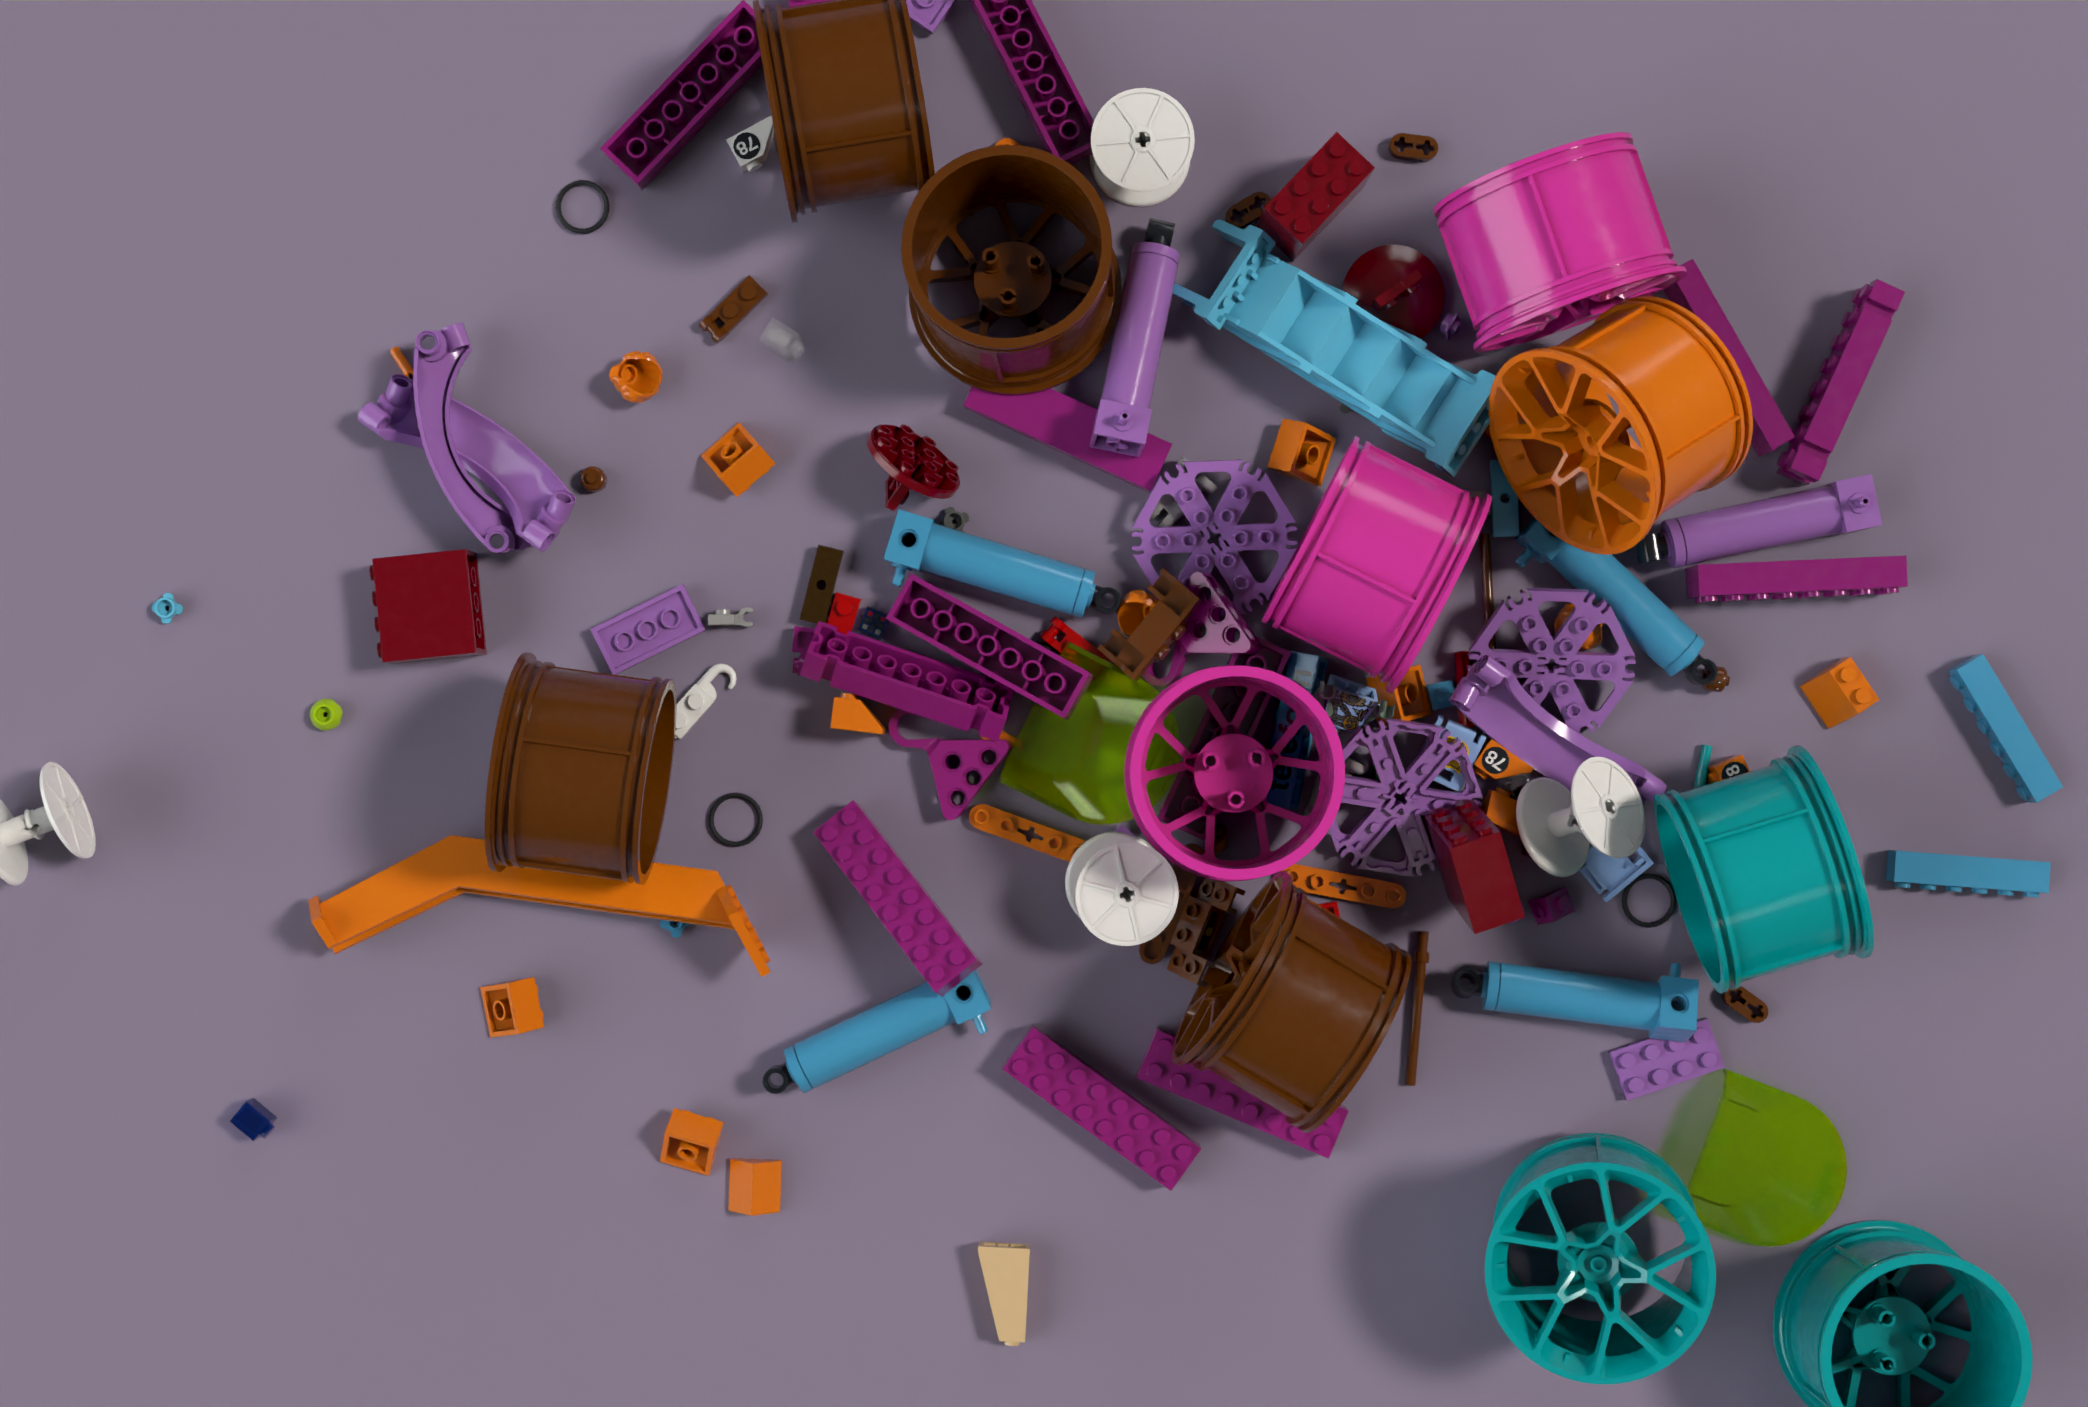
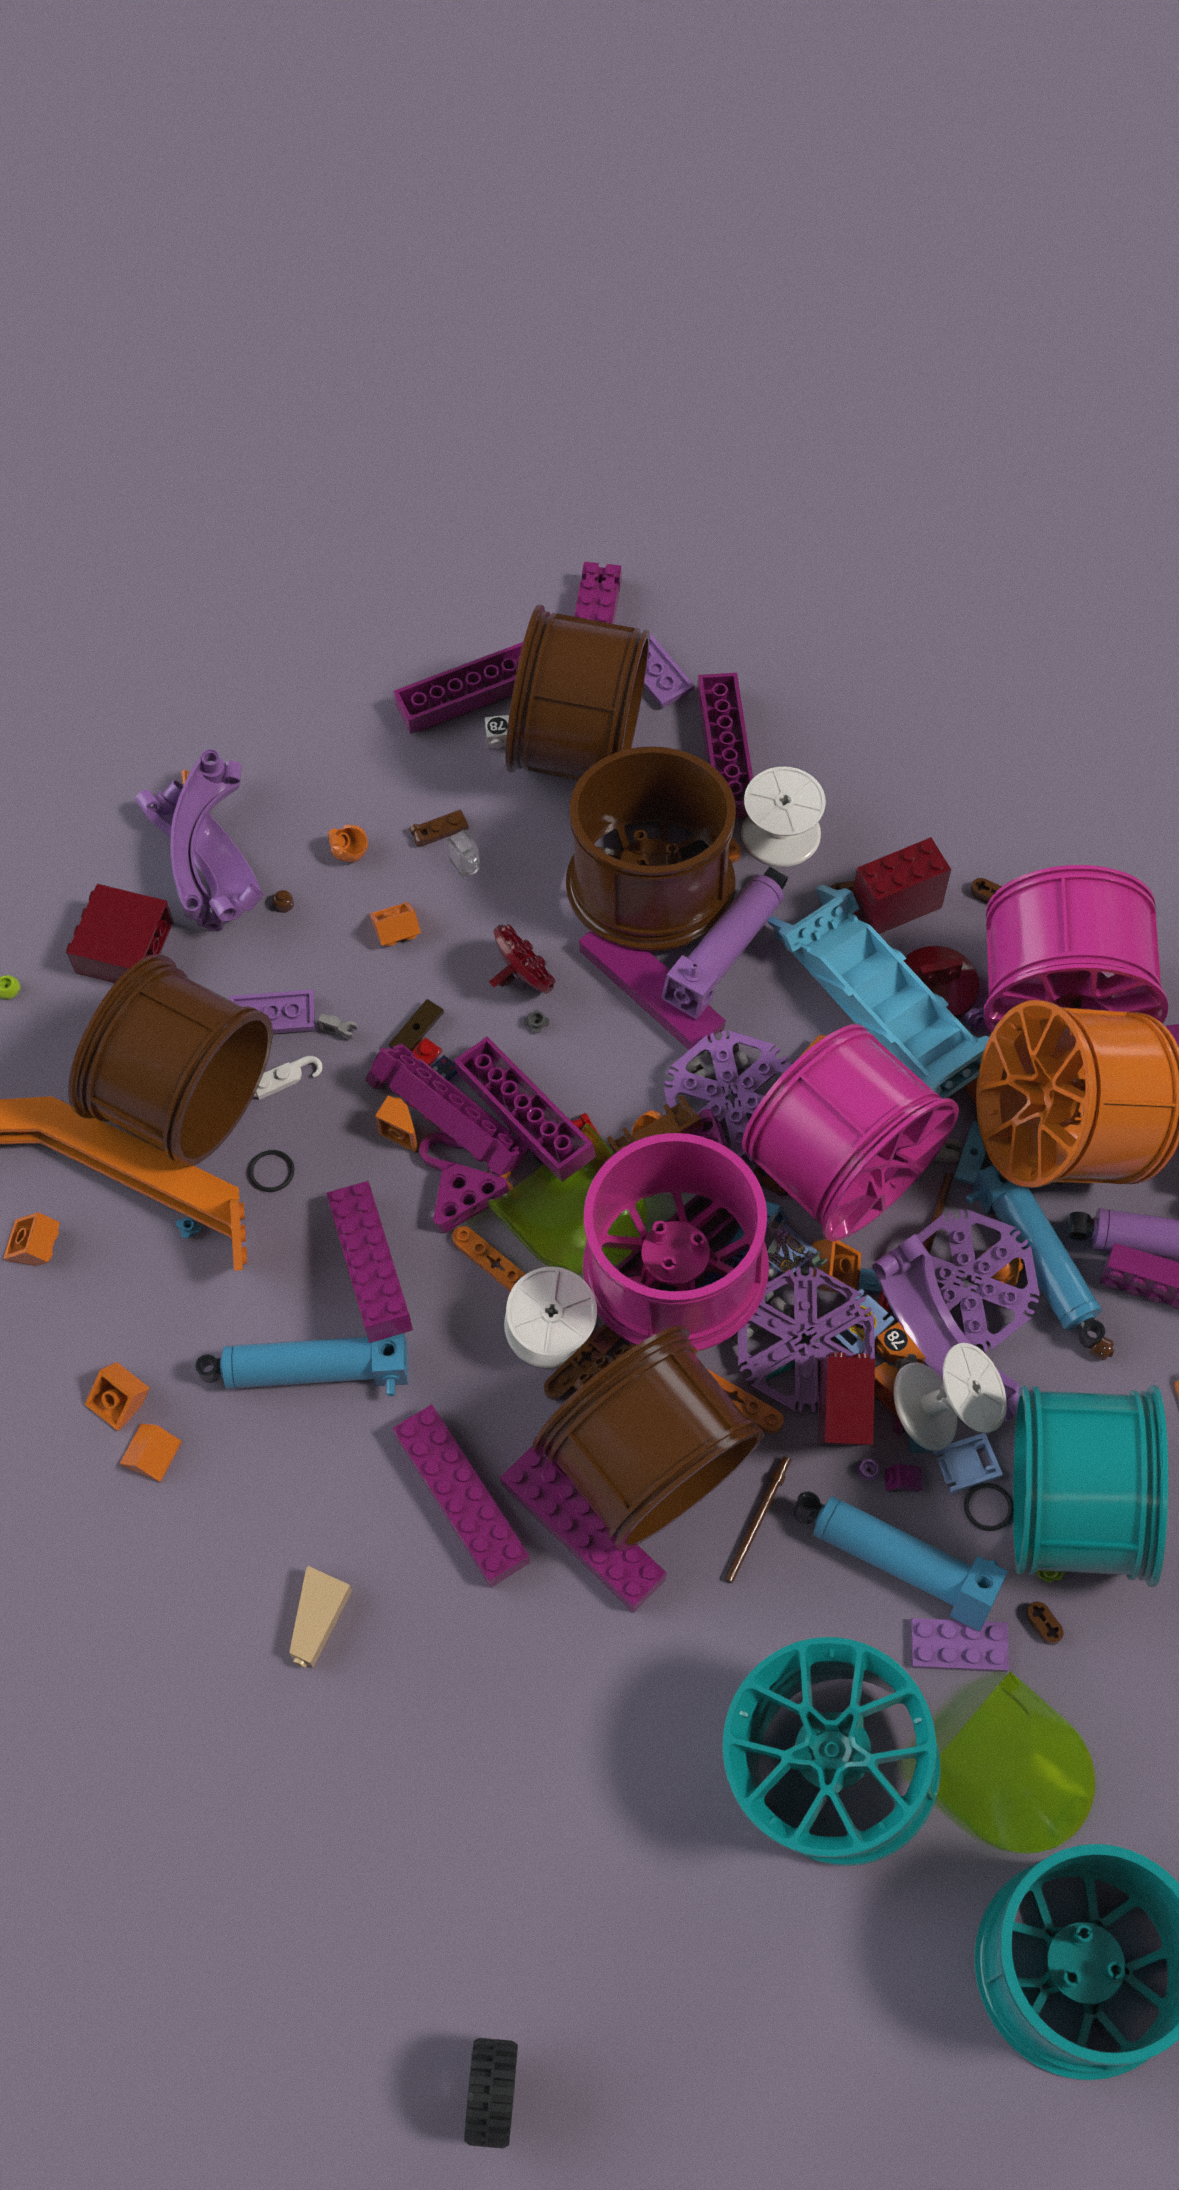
camera: 25 degrees right, 25 degrees down
(580, 230) = (364, 745): black tyre -> none
(993, 567) = (507, 1025): dark azure piece -> none

